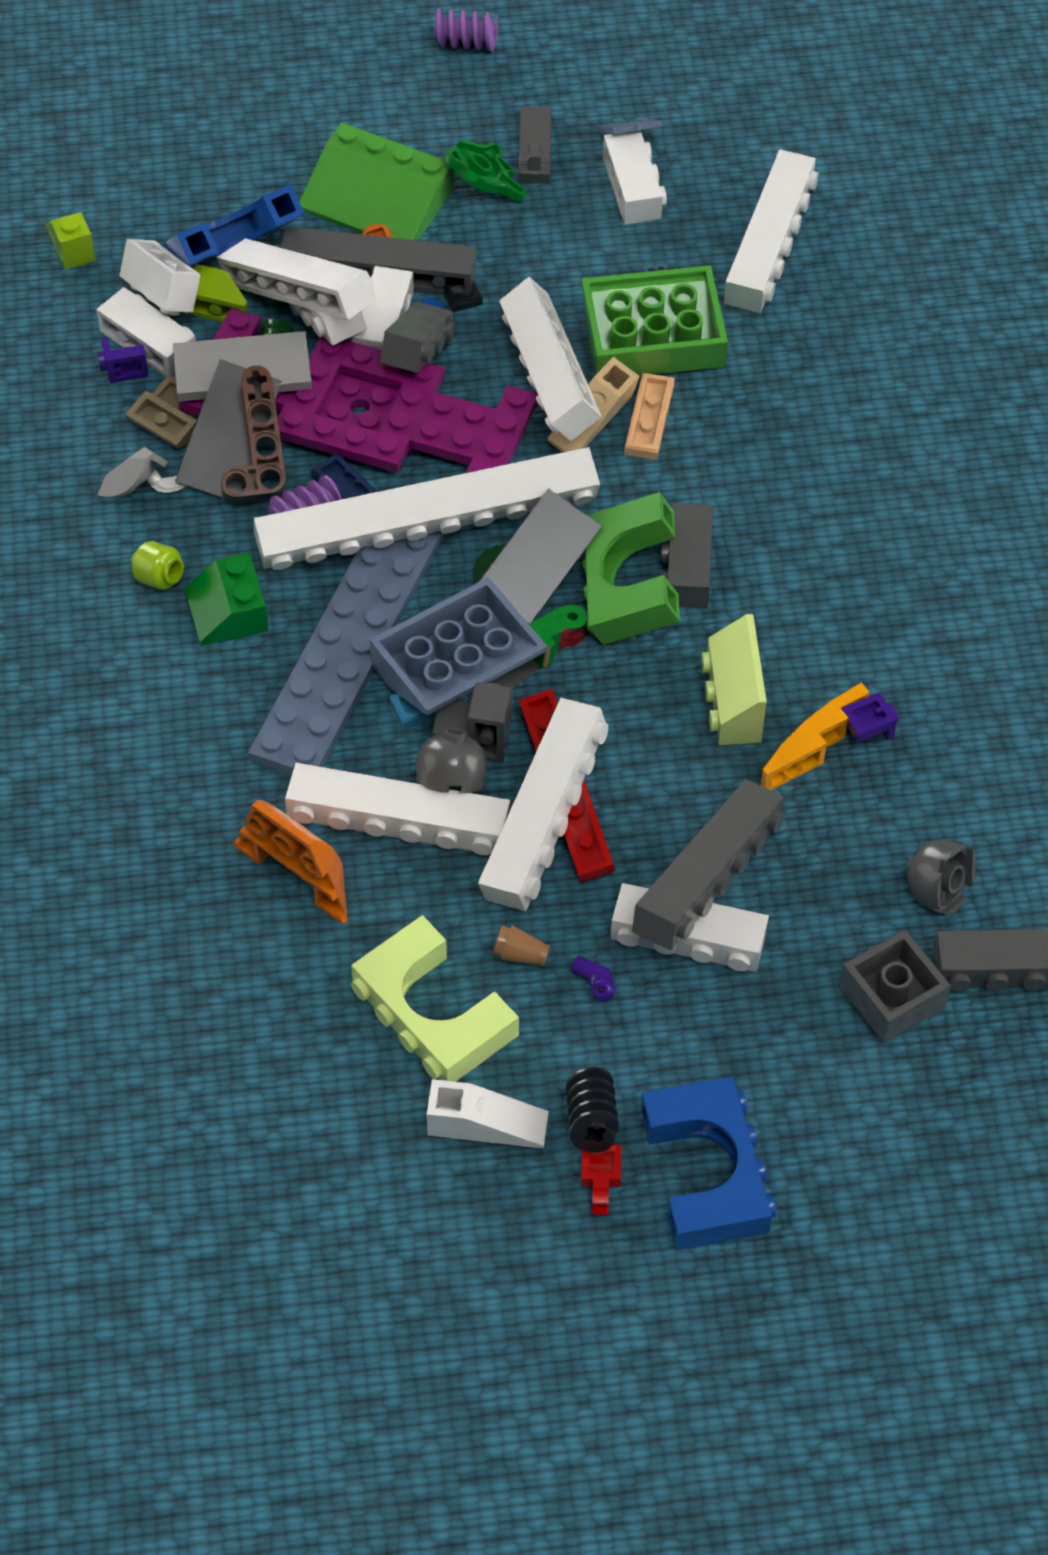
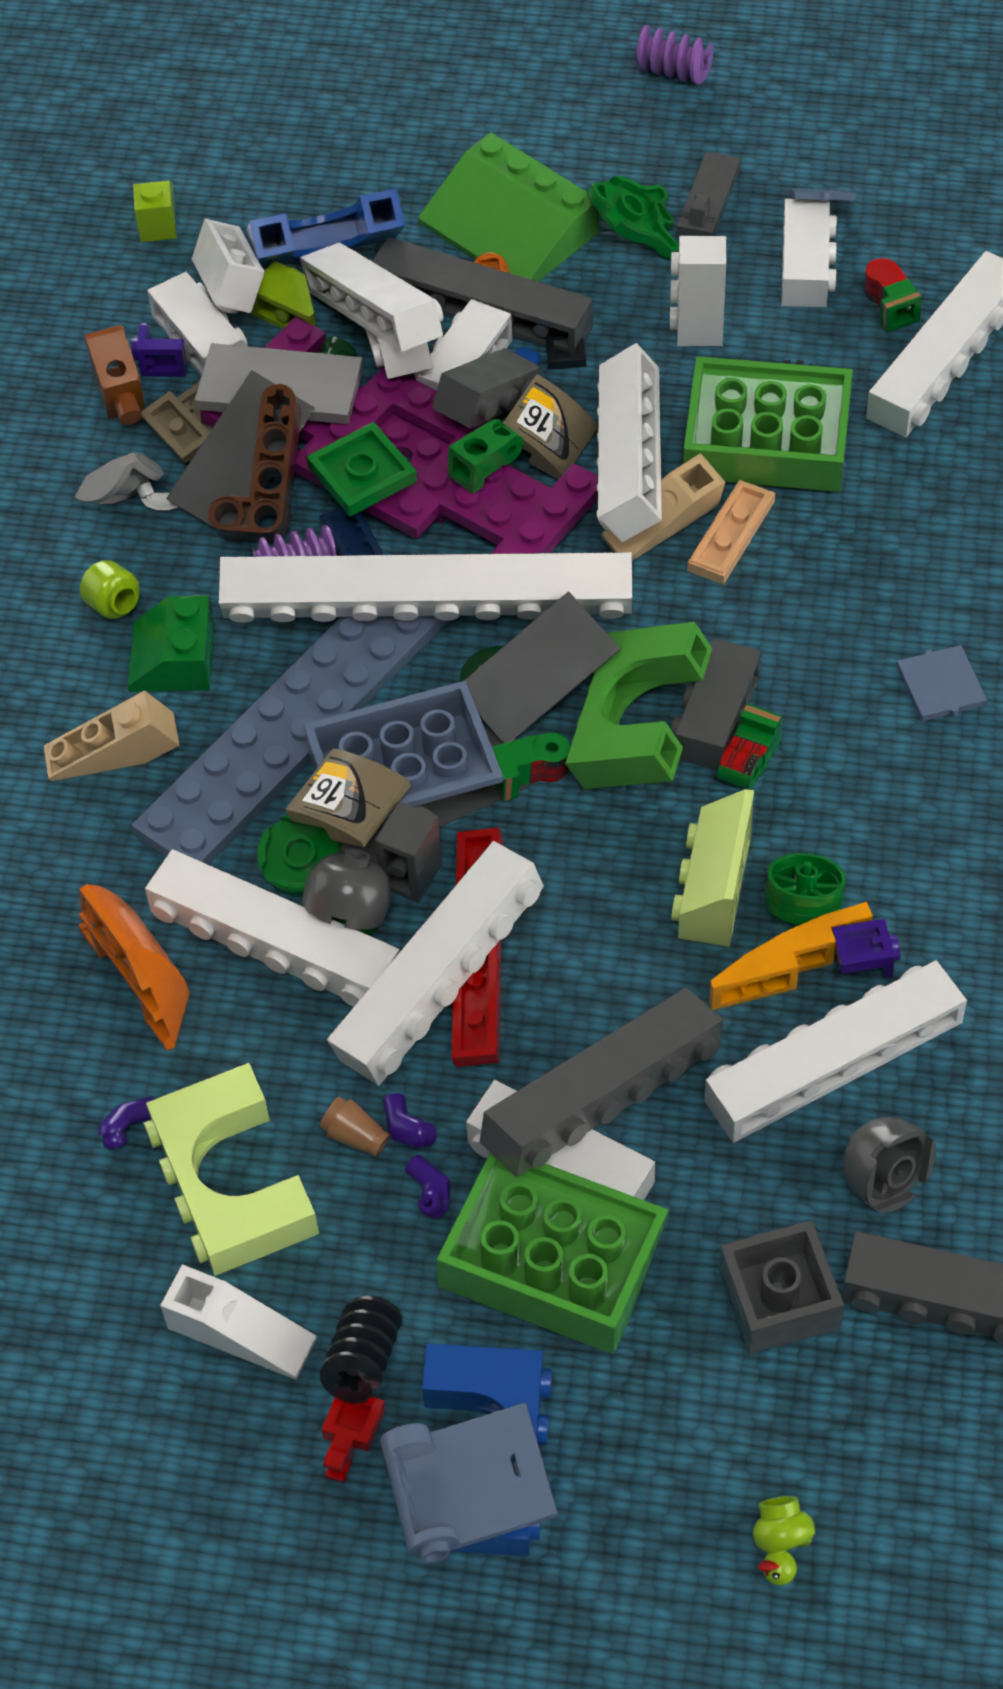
camera: 20 degrees right, 0 degrees up
(95, 386) = (119, 386): none -> dark orange torso
(207, 687) = (114, 740): none -> tan slope
(329, 984) = (120, 1118): none -> dark purple arm
(339, 423) = (361, 469): none -> green plate
(393, 743) = (290, 852): none -> green tile
(432, 688) = (348, 797): none -> dark tan slope
(435, 392) = (482, 454): none -> green leg
(476, 360) = (552, 426): none -> slope
(559, 938) = (404, 1127): none -> dark purple arm
(565, 224) = (698, 290): none -> white brick
(710, 1187) = (462, 1483): none -> sand blue door
(713, 1001) = (552, 1251): none -> bright green slope
(714, 198) = (893, 293): none -> leg
(727, 583) = (750, 747): none -> green leg
(807, 683) = (804, 887): none -> green wheel
(855, 502) = (941, 683): none -> sand blue piece
(871, 802) = (834, 1050): none -> white brick
(953, 1162) = (777, 1530): none -> lime animal

